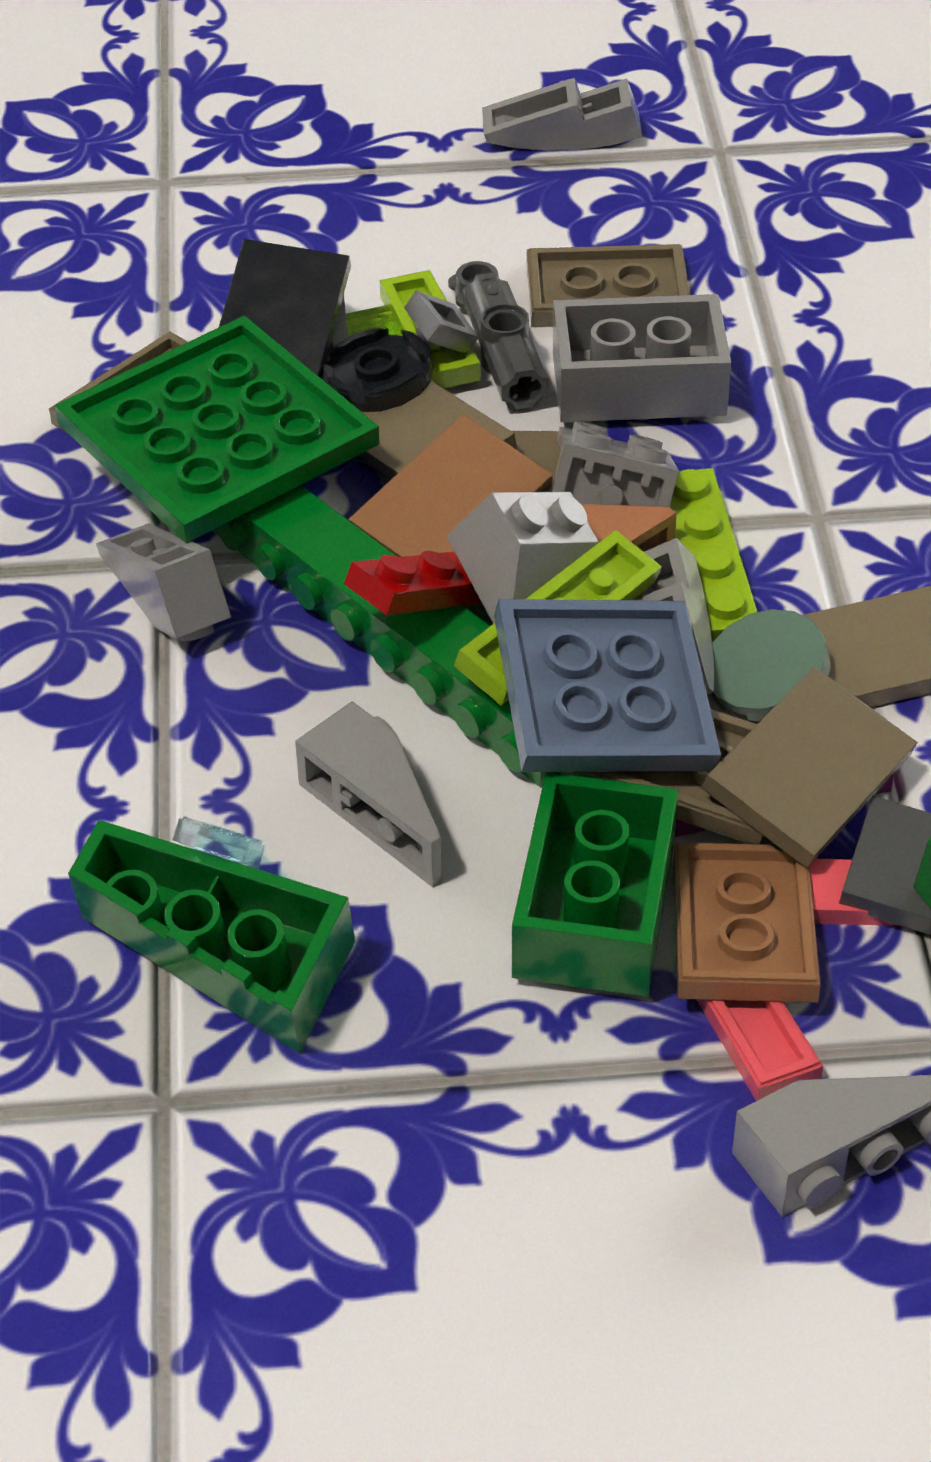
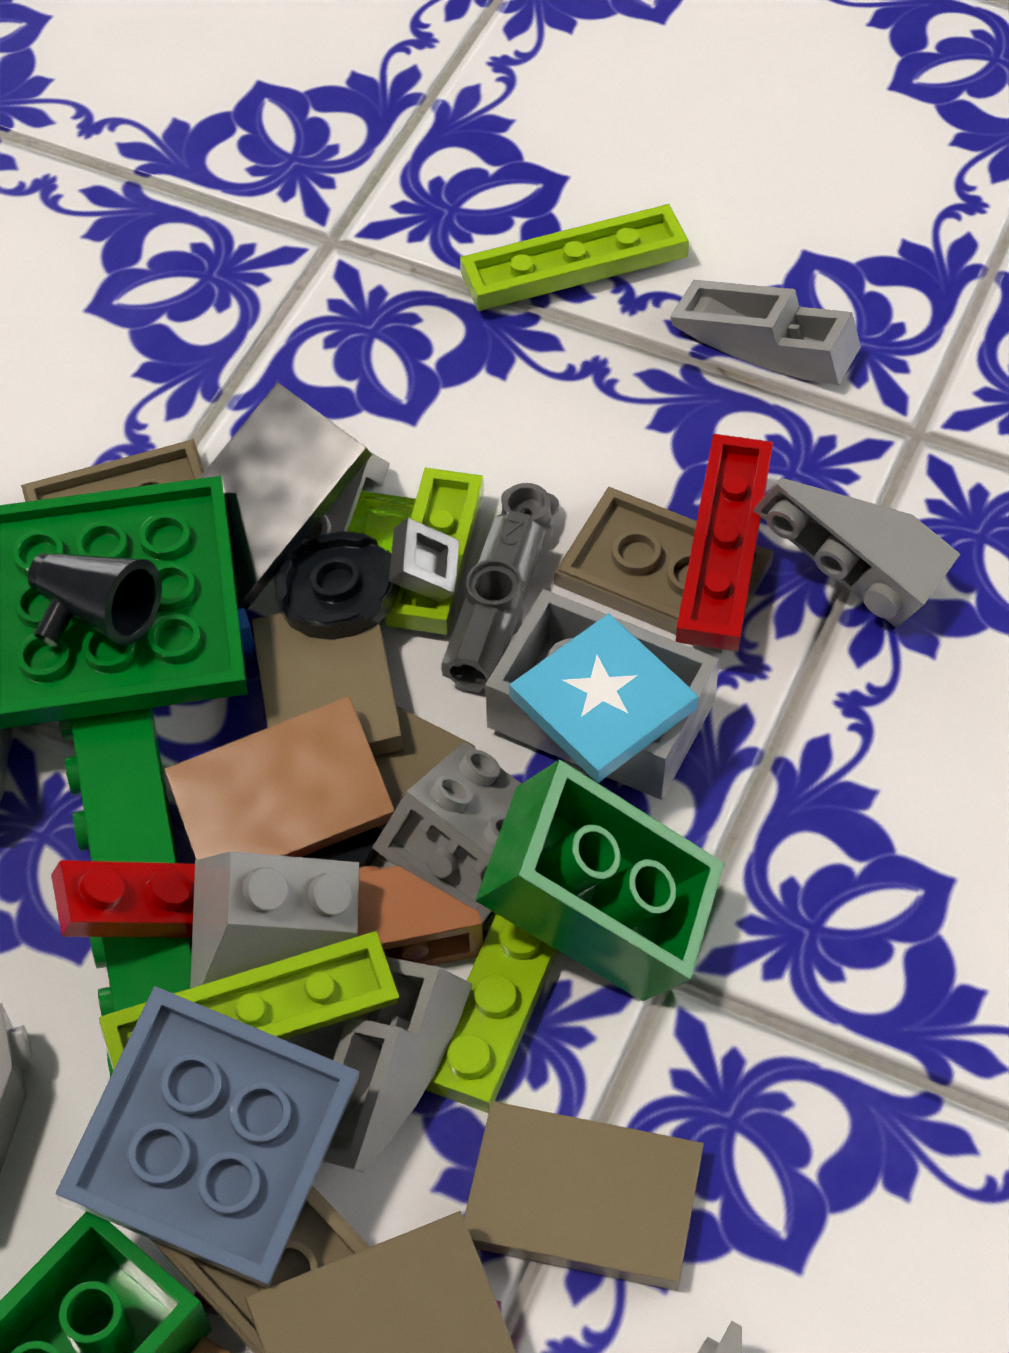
camera: 30 degrees right, 10 degrees up
(219, 403) = (104, 592): none -> black piece
(375, 124) = (573, 257): none -> lime plate
(648, 236) = (724, 543): none -> red plate
(658, 339) = (603, 697): none -> medium azure tile
(746, 448) = (601, 882): none -> green brick
(750, 207) = (867, 547): none -> light grey slope
(764, 659) = (452, 1158): sand green tile -> none

